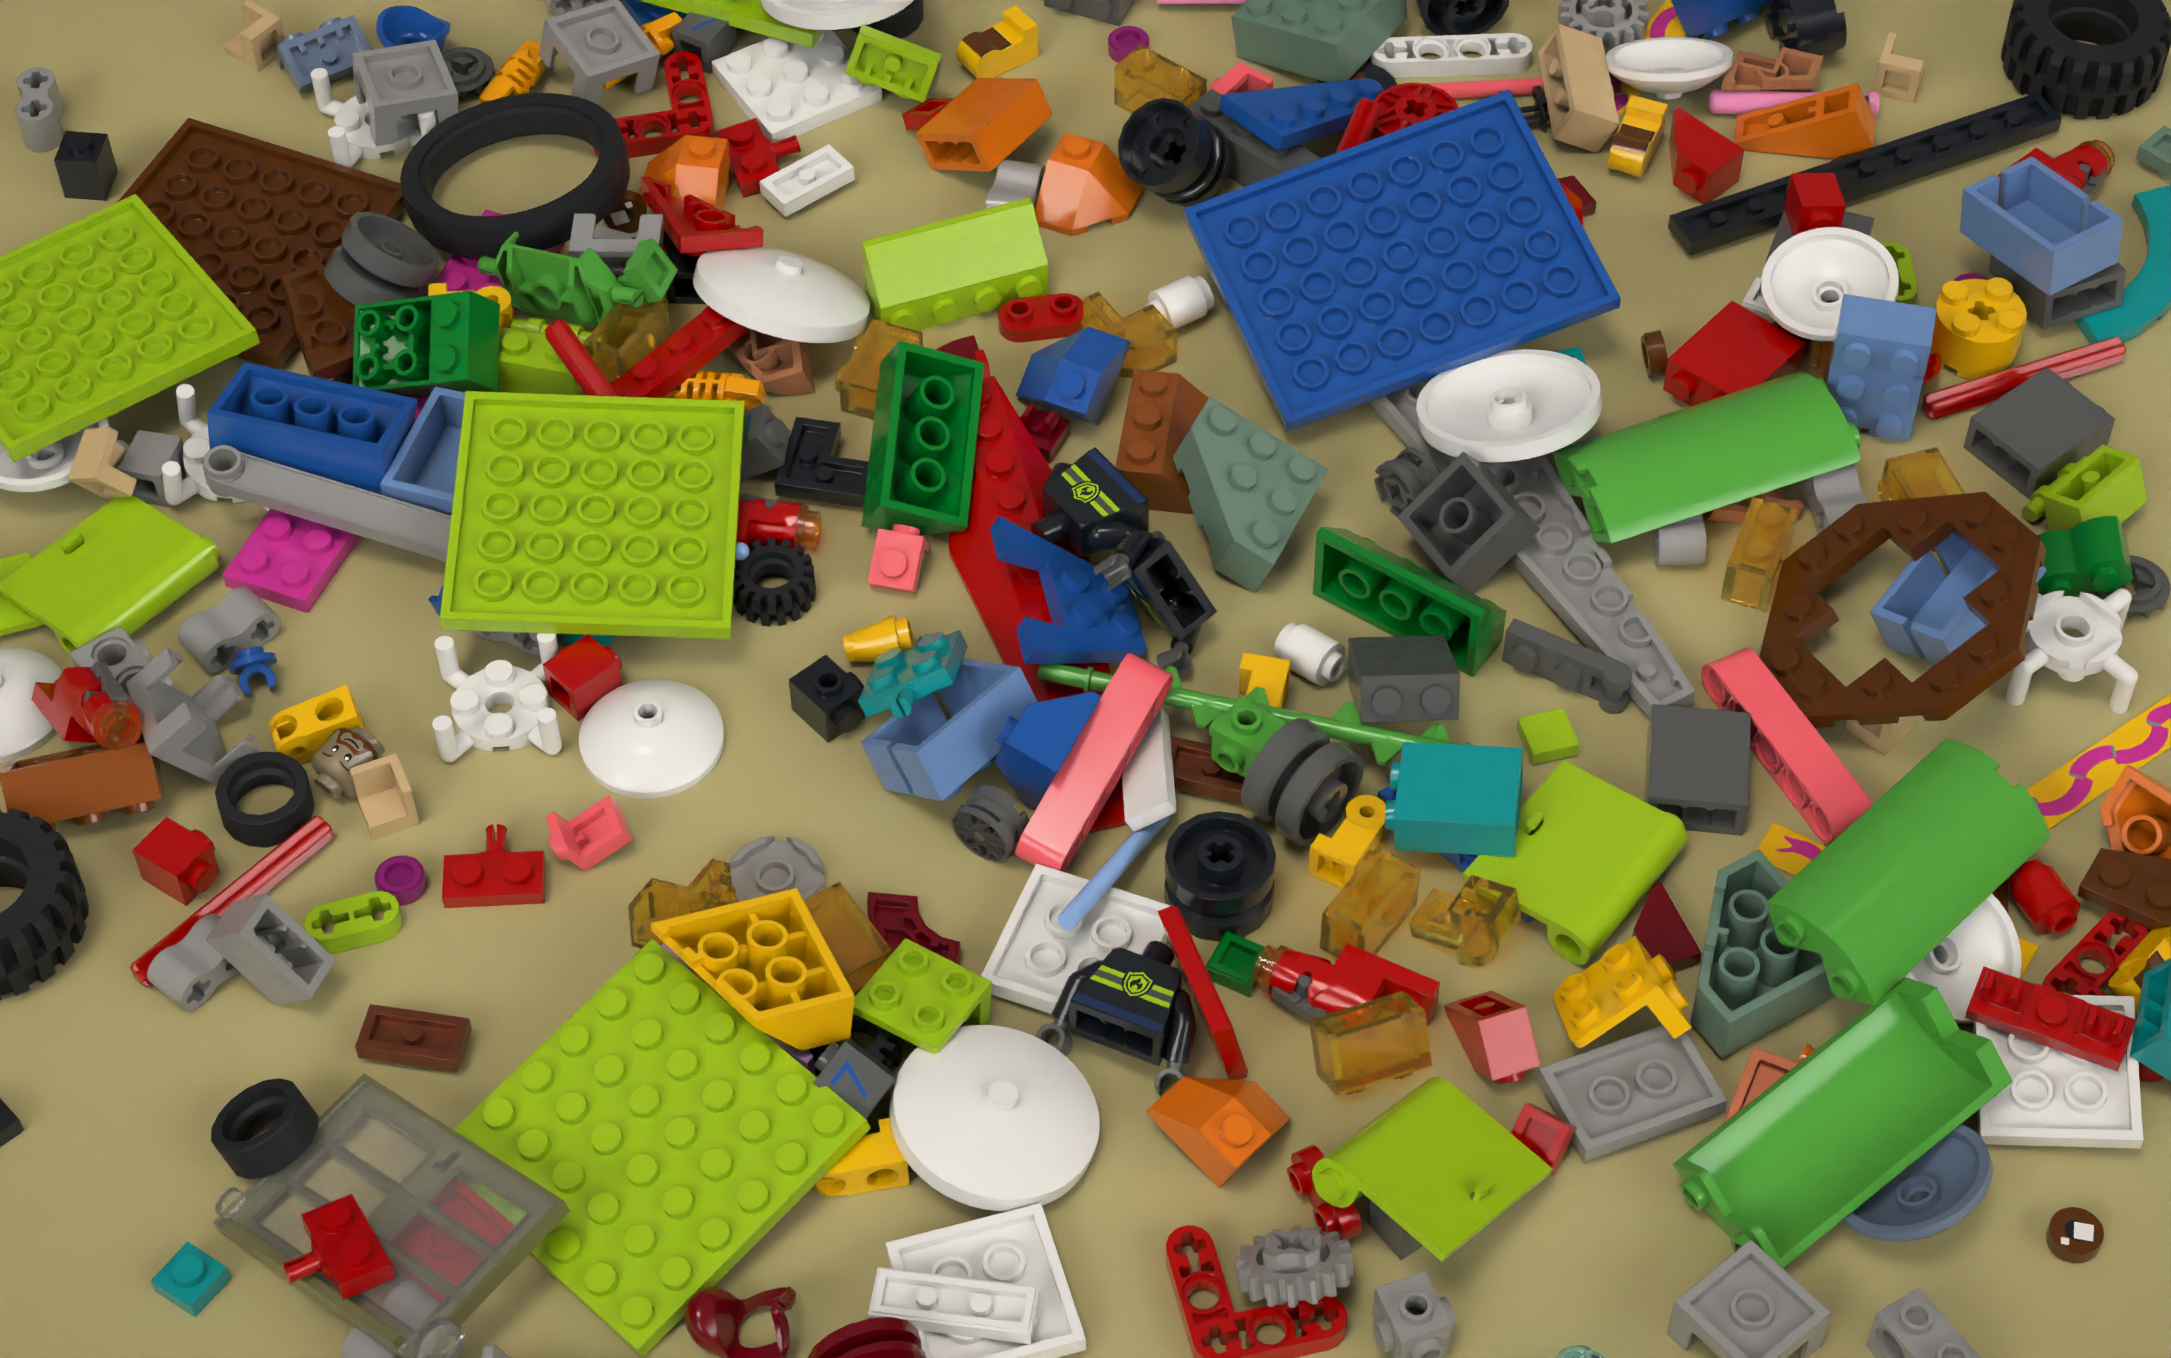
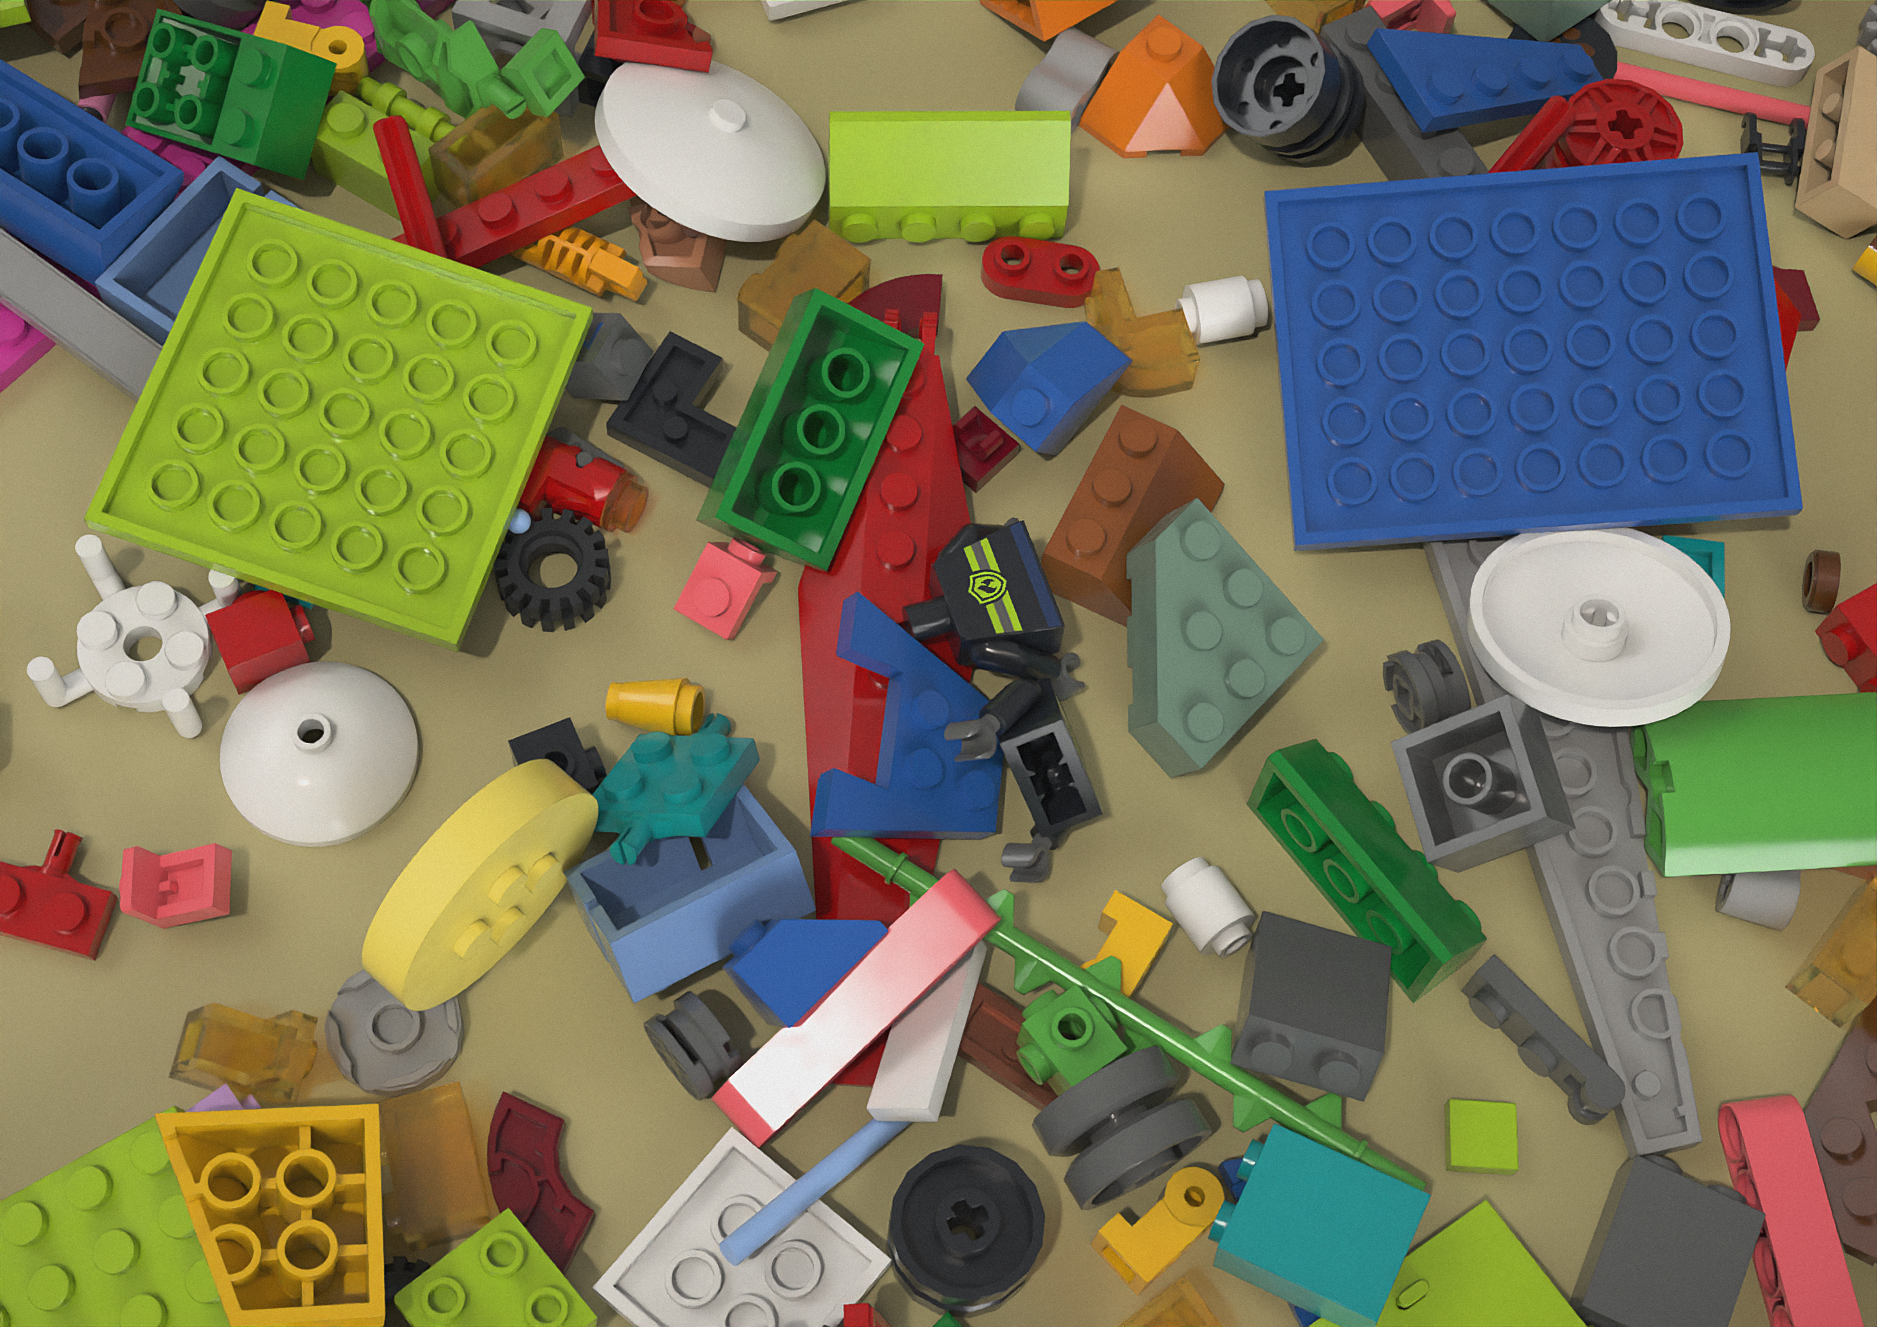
camera: 10 degrees right, 15 degrees up
(812, 747) = (479, 884): none -> light yellow brick

